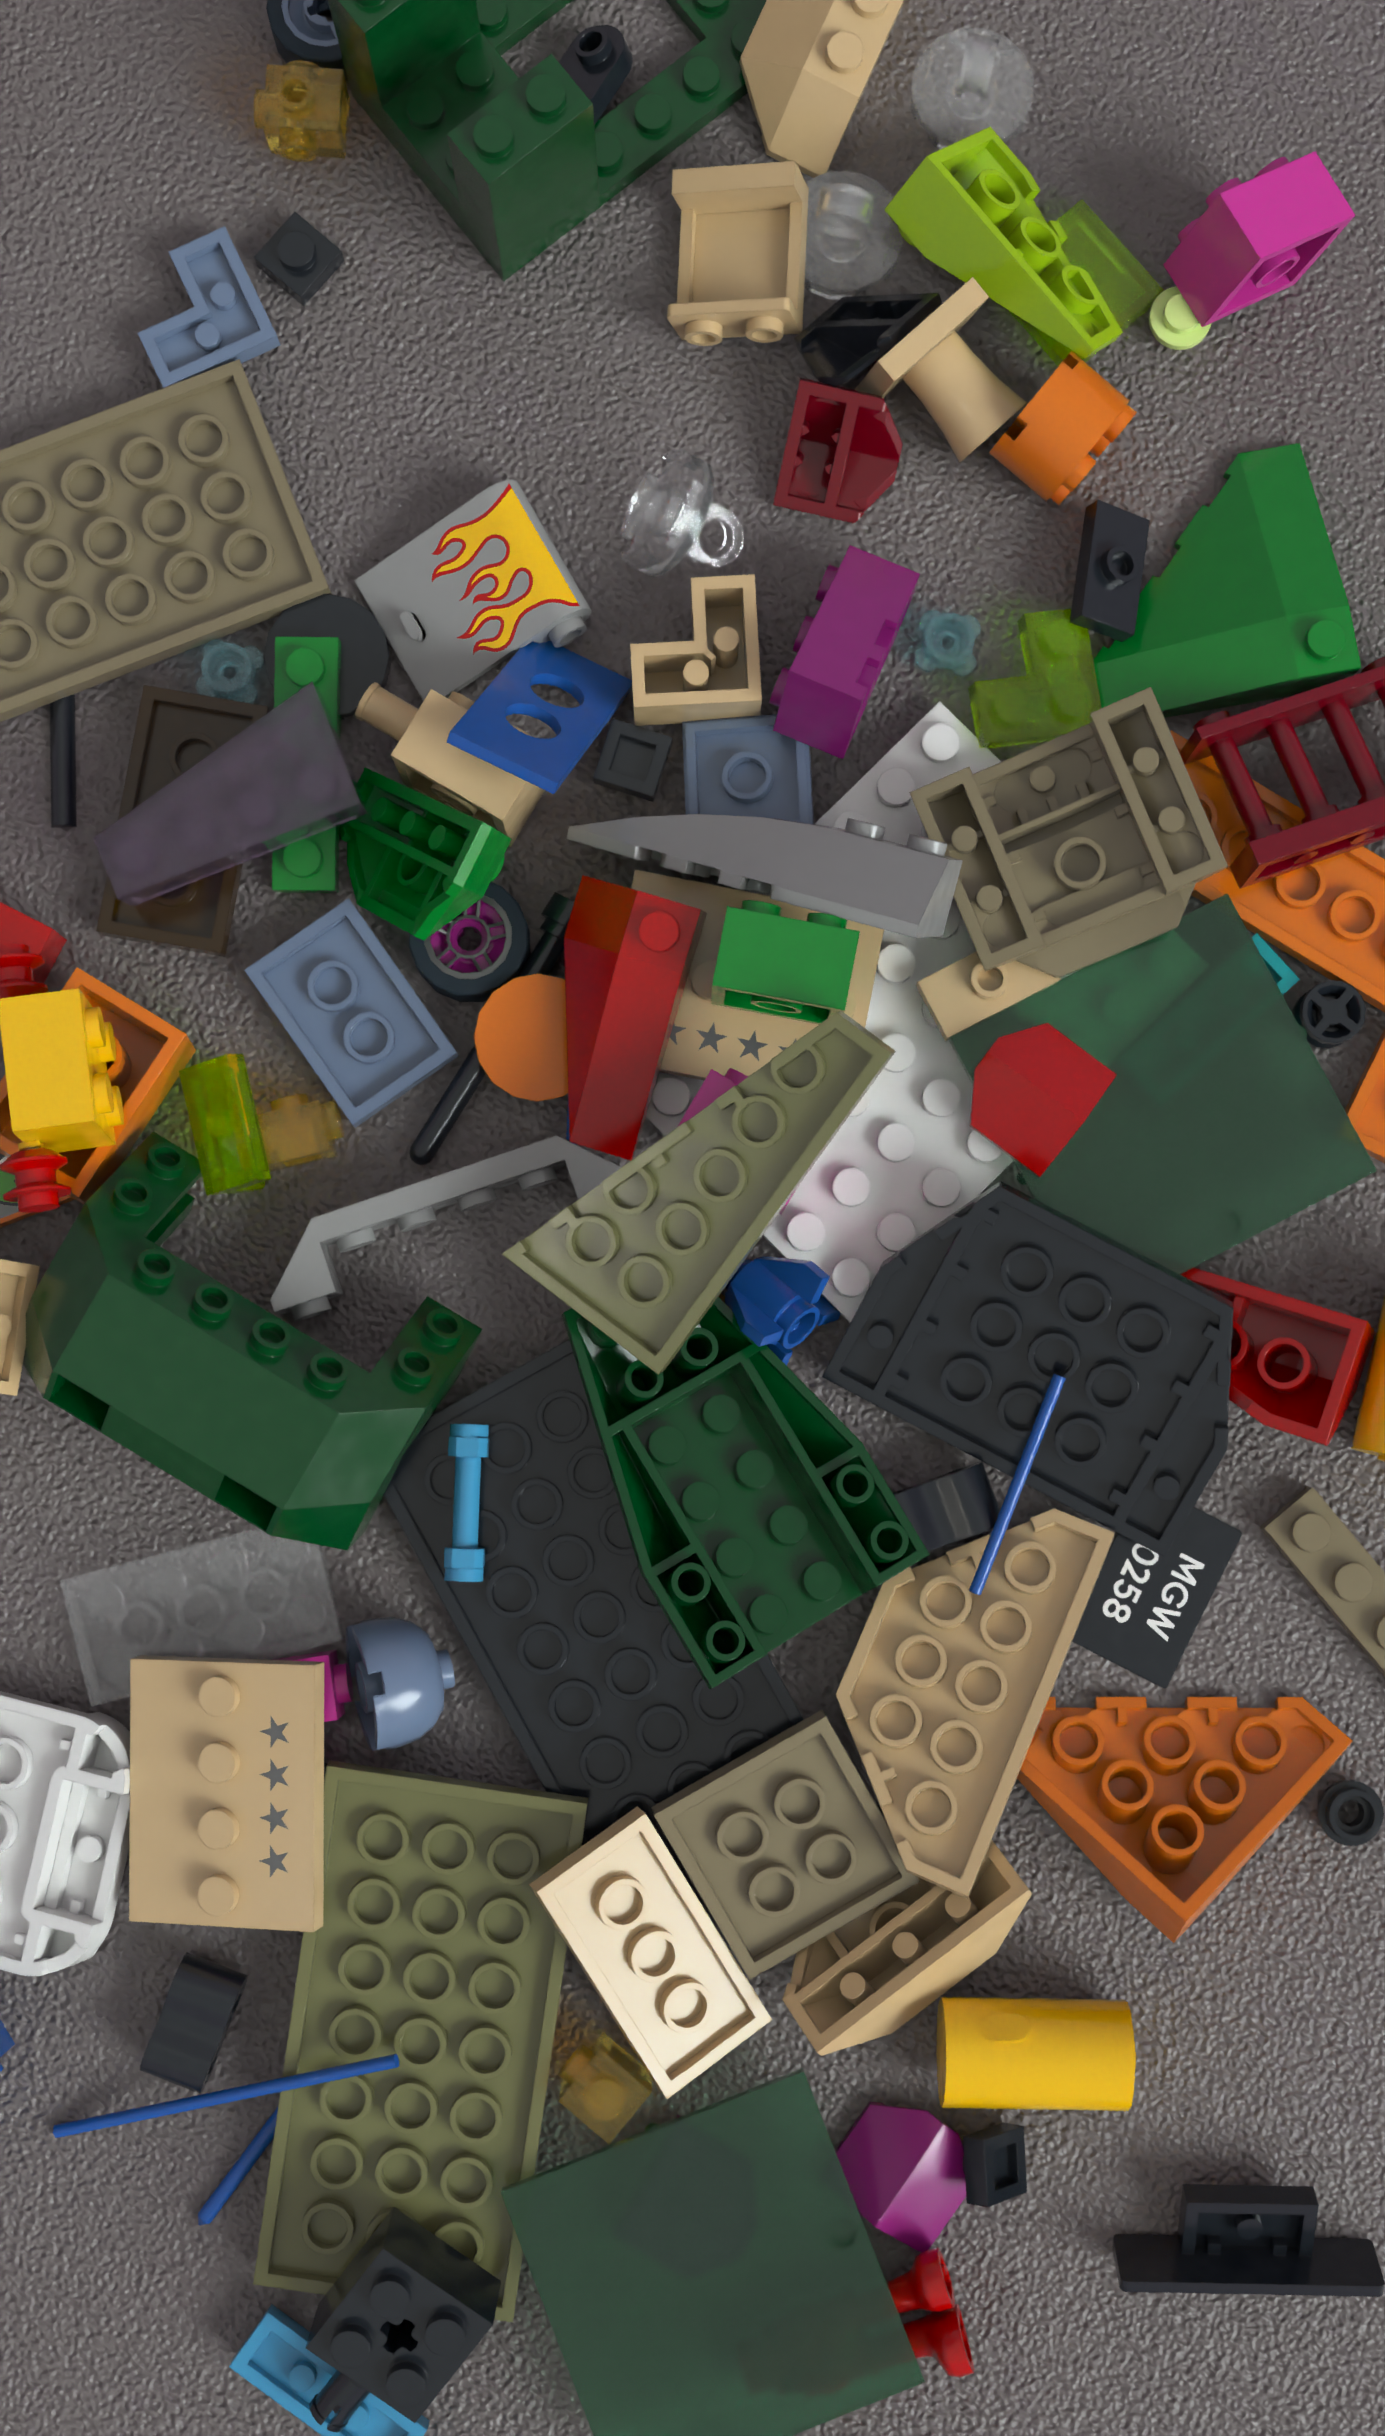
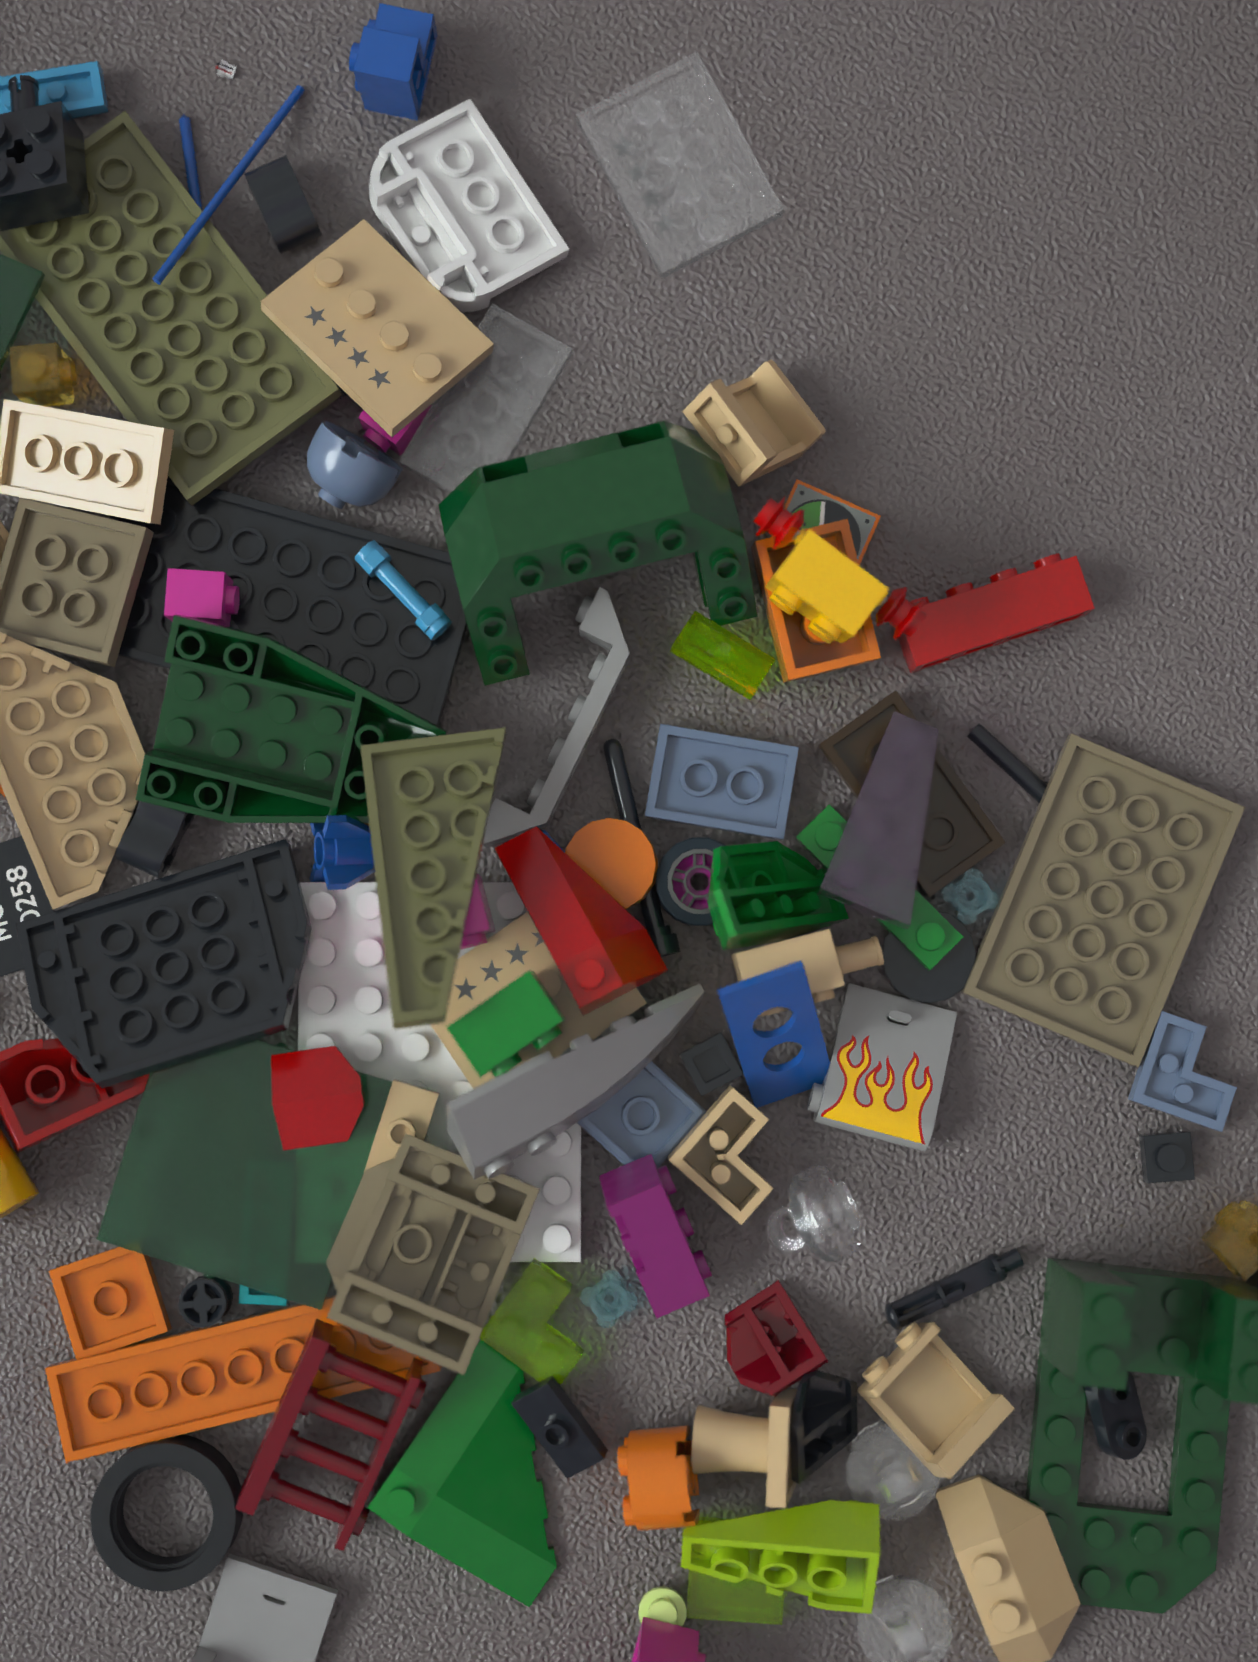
camera: 135 degrees right, 0 degrees up
(110, 2229) = (225, 69): none -> white piece
(299, 1131) = (685, 693): clear yellow brick -> none
(619, 337) = (952, 1288): none -> black piece
(669, 1692) = (201, 596): none -> dark pink brick
(1017, 1484) = (126, 882): blue axle -> none

